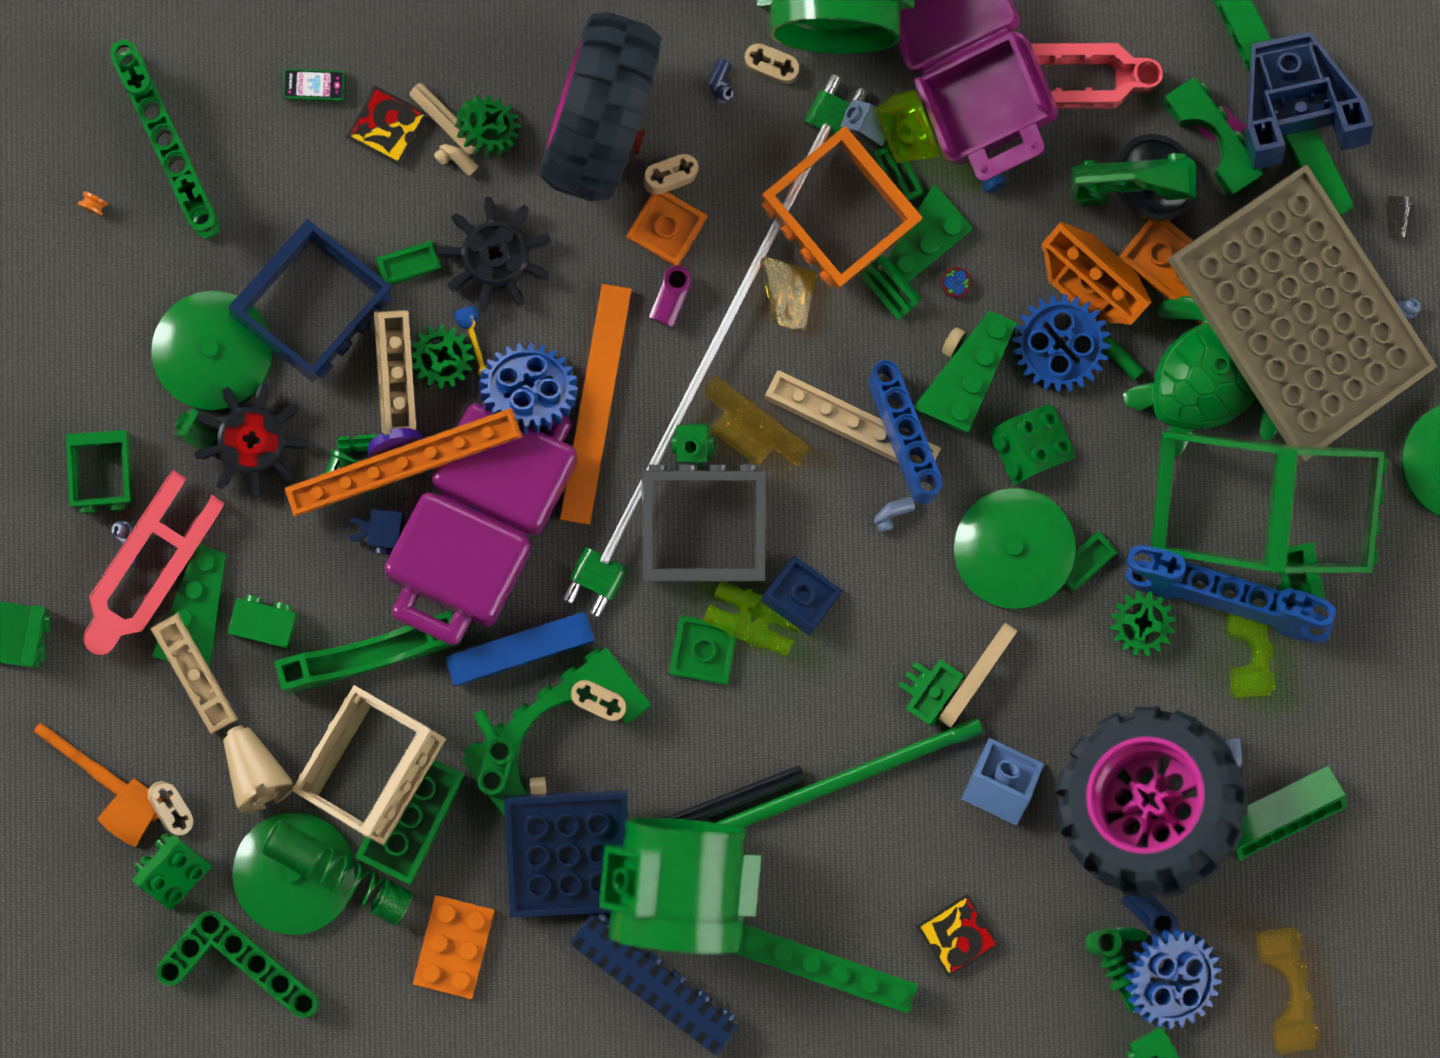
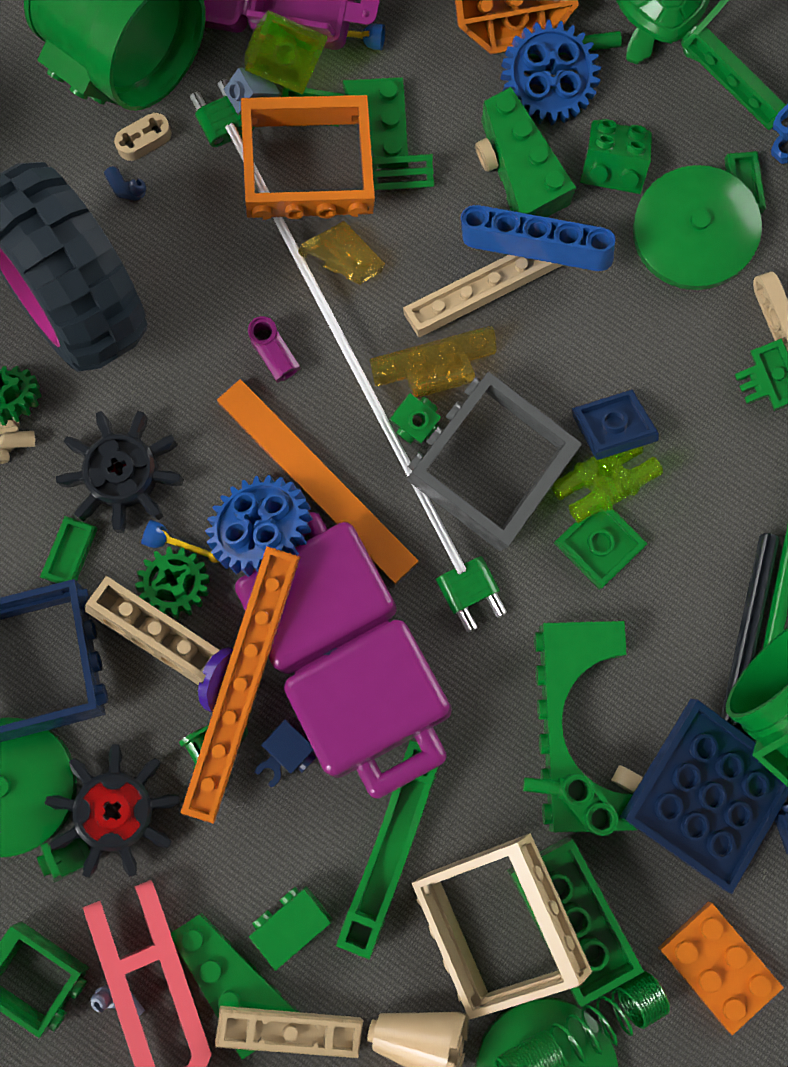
camera: 55 degrees left, 5 degrees down
(358, 443) = (192, 713): green axle -> none
(519, 649) = (486, 704): blue beam -> none
(595, 707) = (593, 672): tan beam -> none
(667, 227) = (210, 314): orange tile -> none
(668, 168) = (163, 275): tan beam -> none
(892, 509) = (591, 300): sand blue arm -> none
(956, 282) = (436, 122): tile -> none

